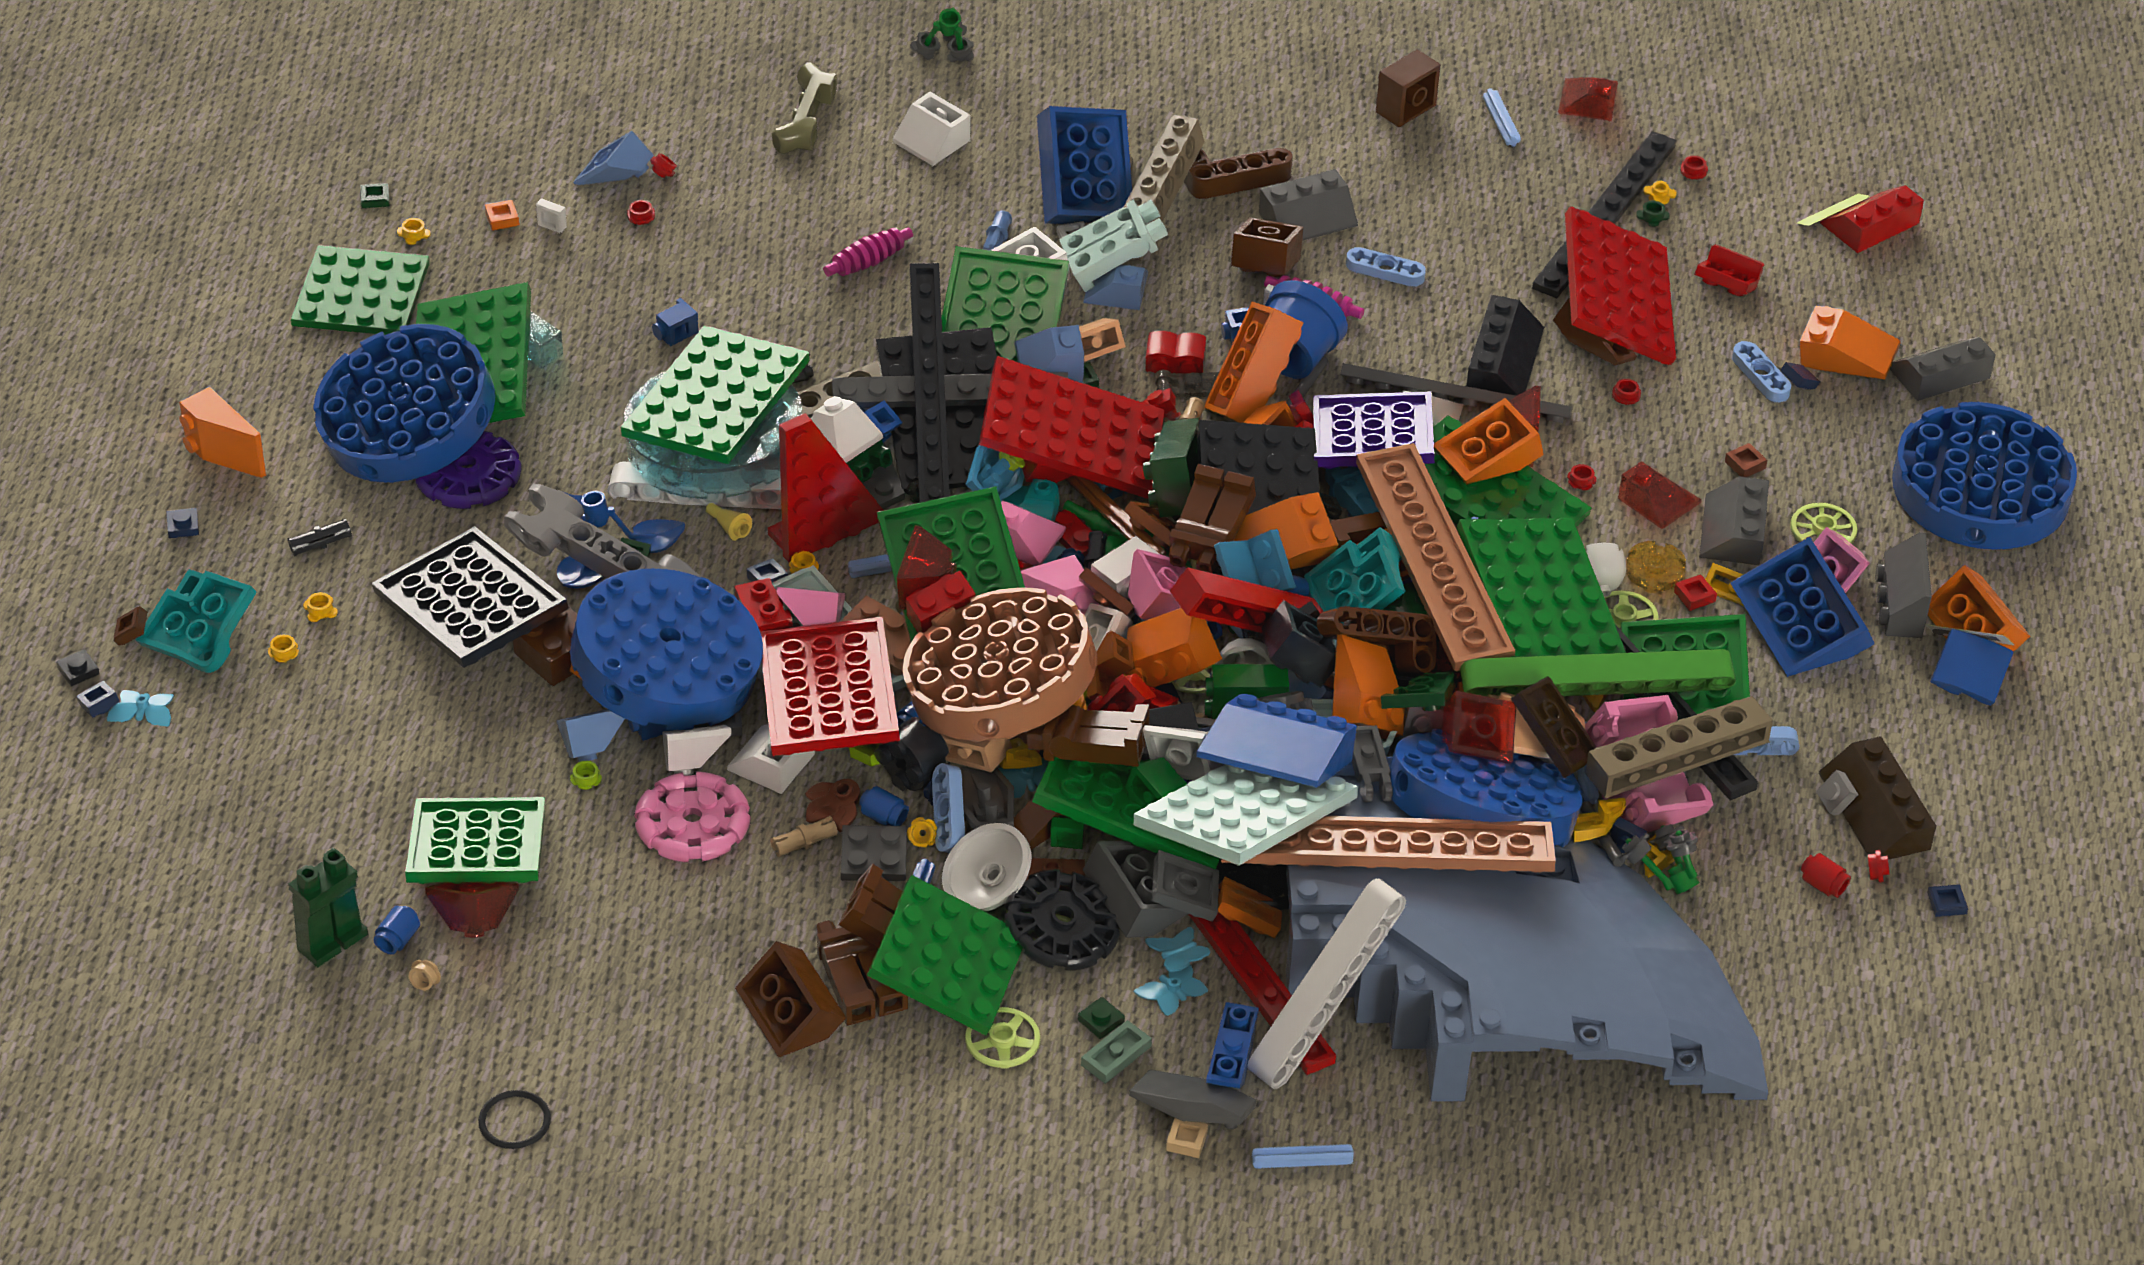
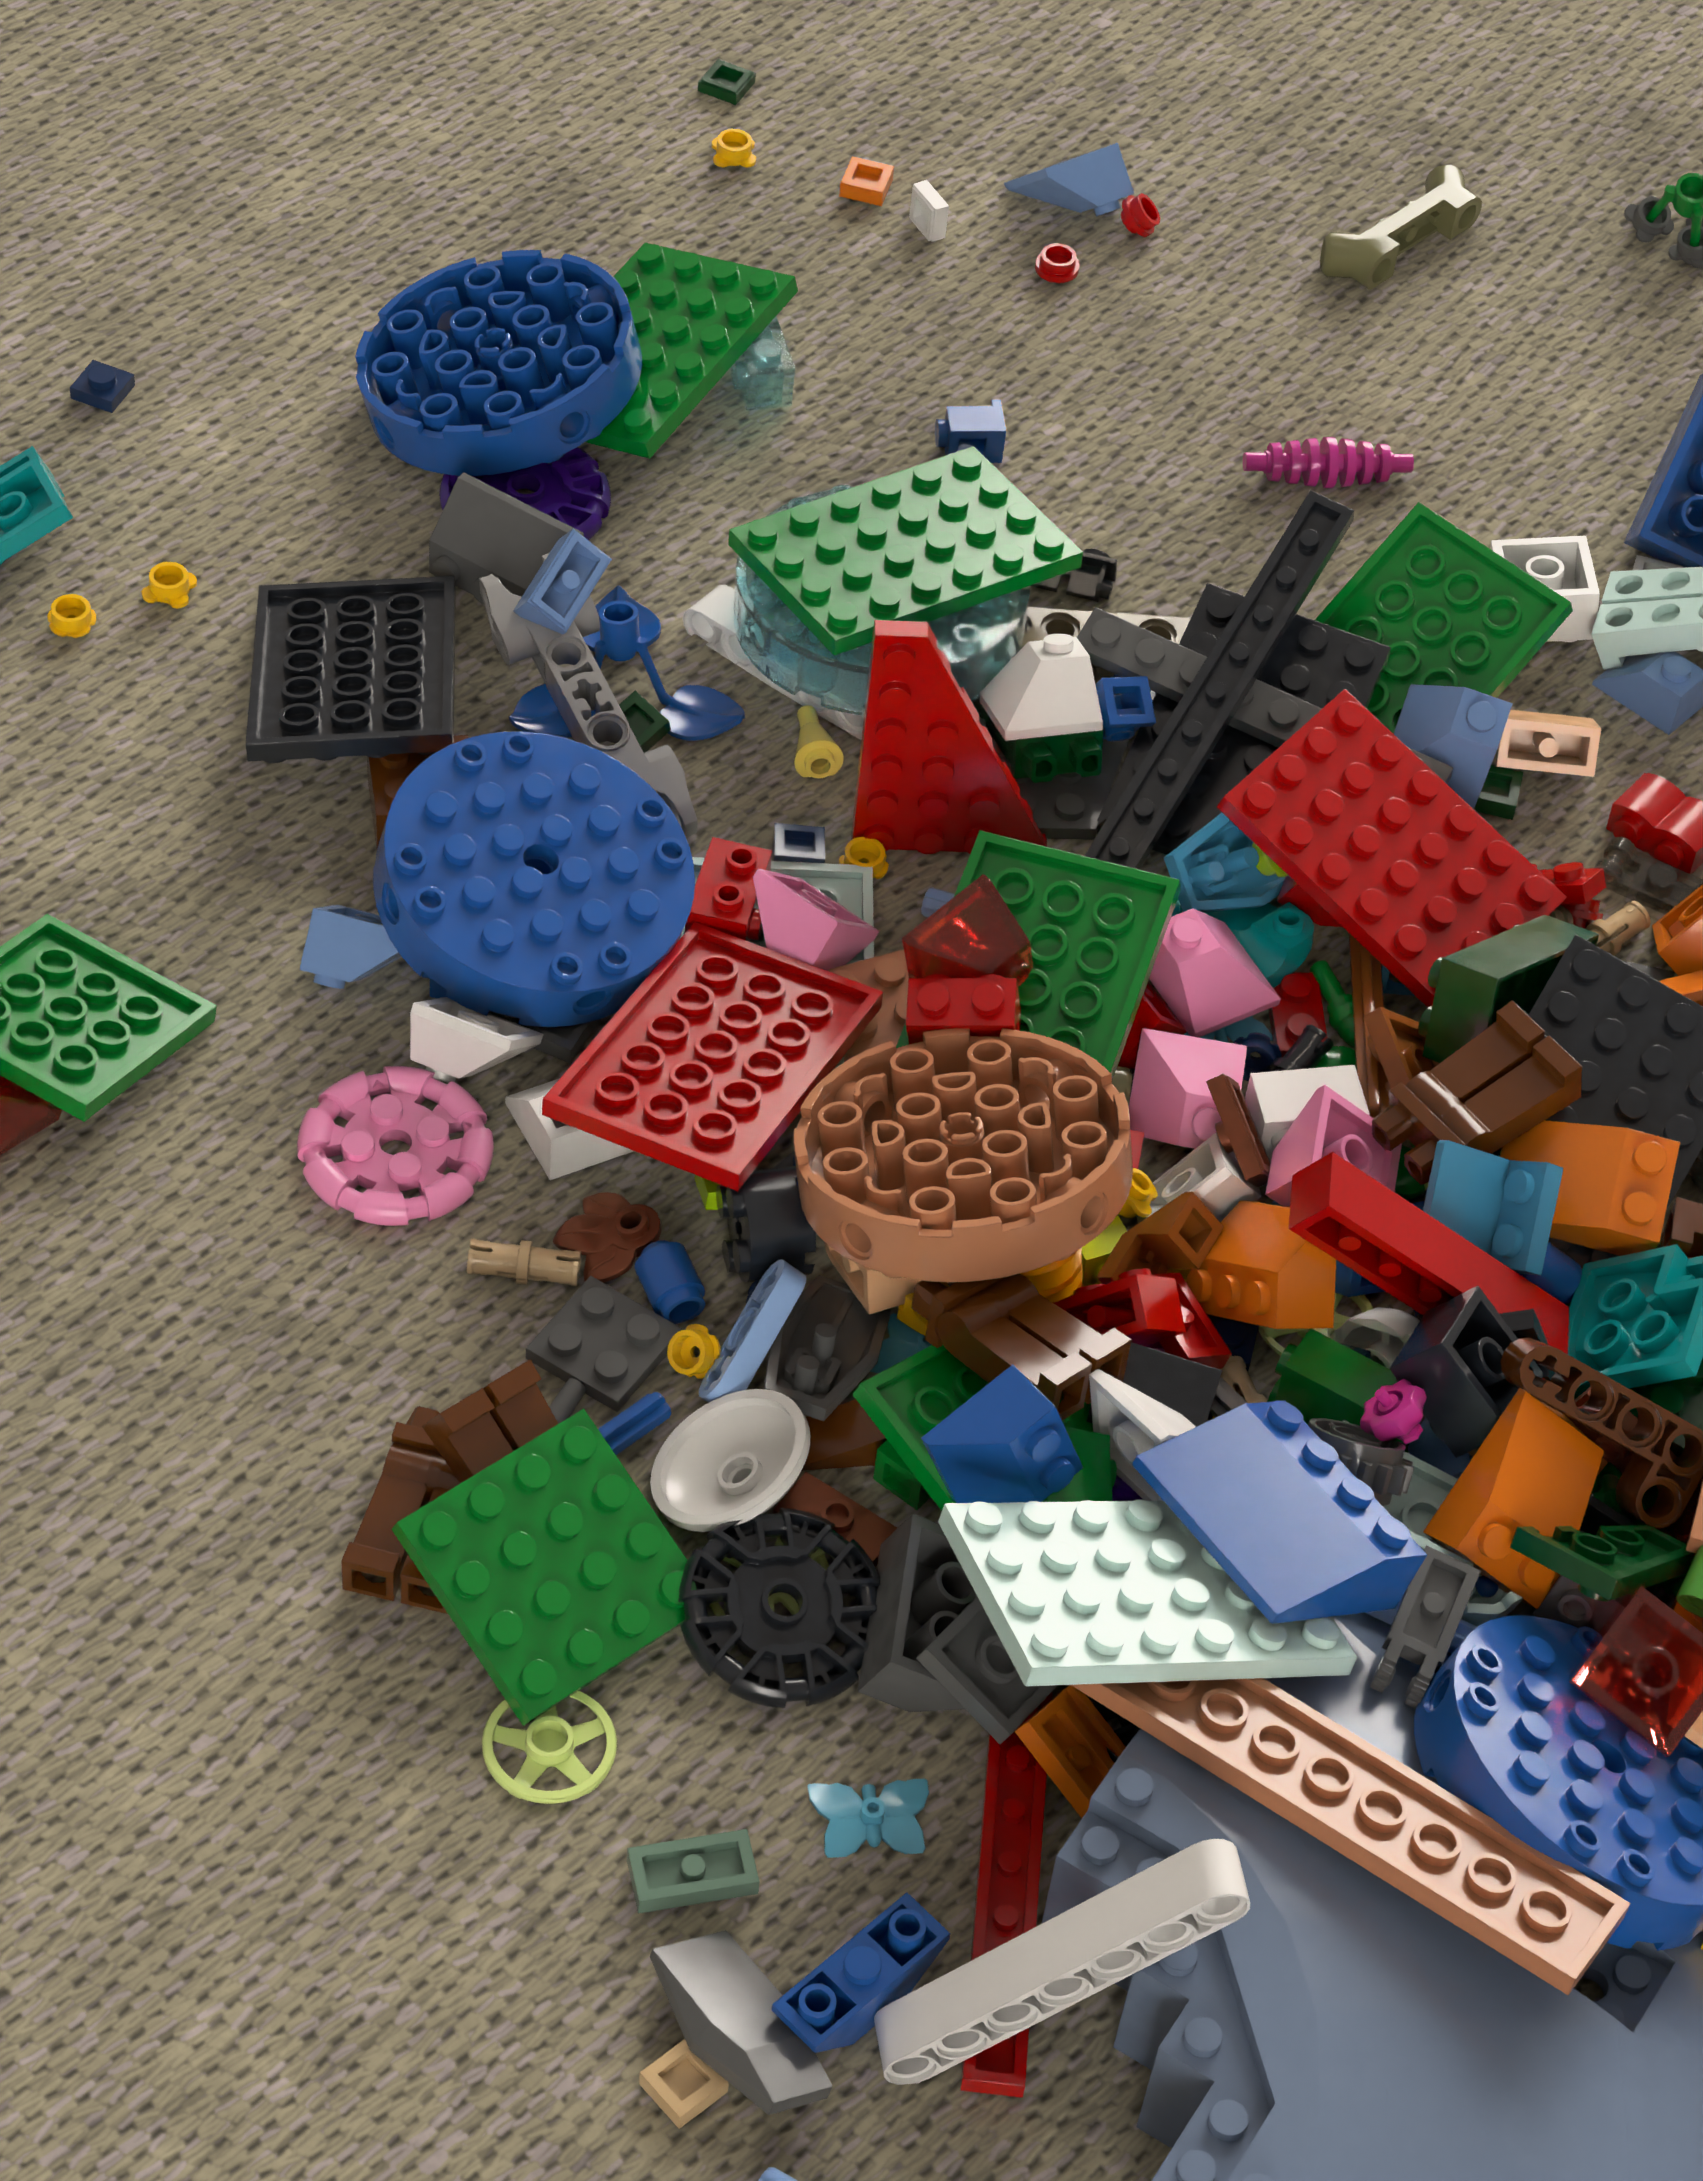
camera: 30 degrees right, 5 degrees up
(221, 434) = (233, 285): orange slope -> none
(319, 537) = (250, 491): black pin -> none
(360, 290) = (598, 193): plate -> none
(486, 495) = (490, 534): none -> dark grey slope
(554, 496) = (563, 583): none -> medium blue slope
(585, 775) = (303, 994): lime plate -> none
(789, 1000) = (286, 1502): reddish brown slope -> none
(933, 129) = (1559, 335): white slope -> none
(998, 231) = (1545, 520): medium blue axle -> none
(1101, 1017) = (719, 1800): dark green plate -> none
(1133, 778) = (1003, 1445): none -> blue slope
(1178, 950) = (925, 1759): medium azure piece -> none
(1286, 677) = (1395, 1412): none -> dark pink piece

